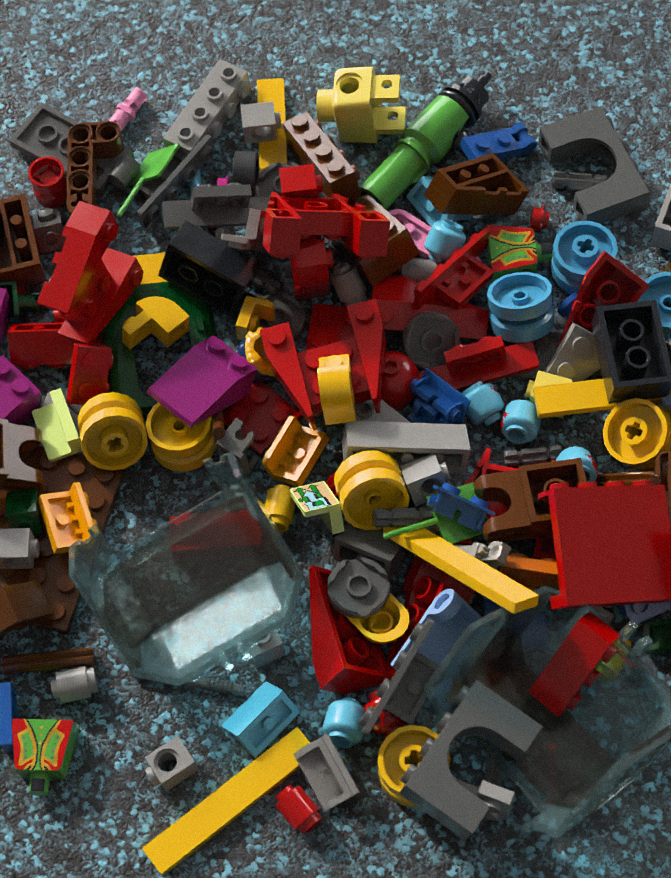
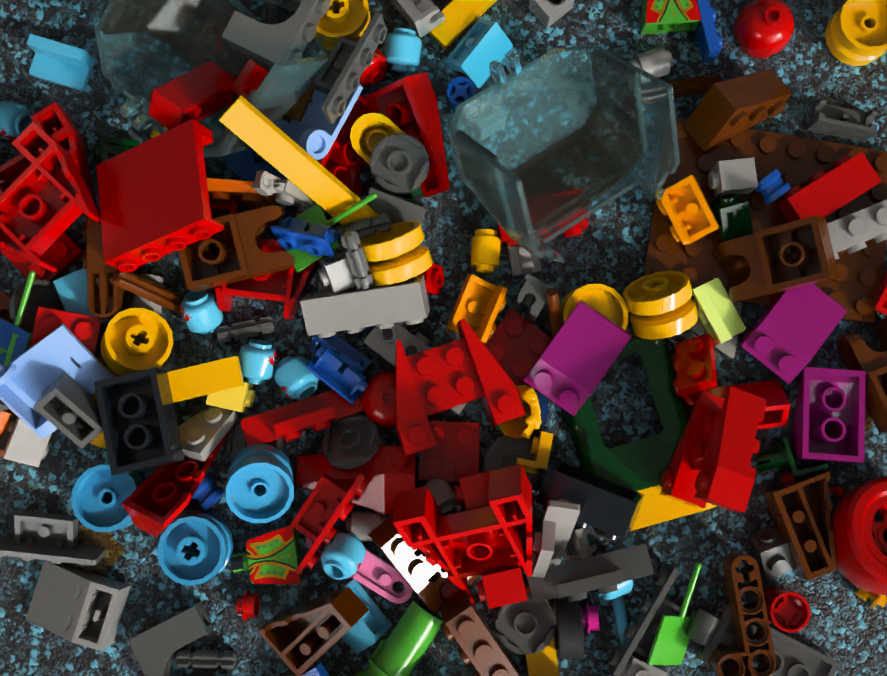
camera: 170 degrees right, 20 degrees up
(158, 317) = (634, 439): yellow brick -> none
(284, 664) = (461, 88): none -> blue wheel
(319, 500) = (448, 243): panel -> none
(336, 389) = (438, 348): yellow brick -> none
(408, 473) = (357, 260): none -> dark grey axle
(518, 679) = (249, 79): none -> red bracket

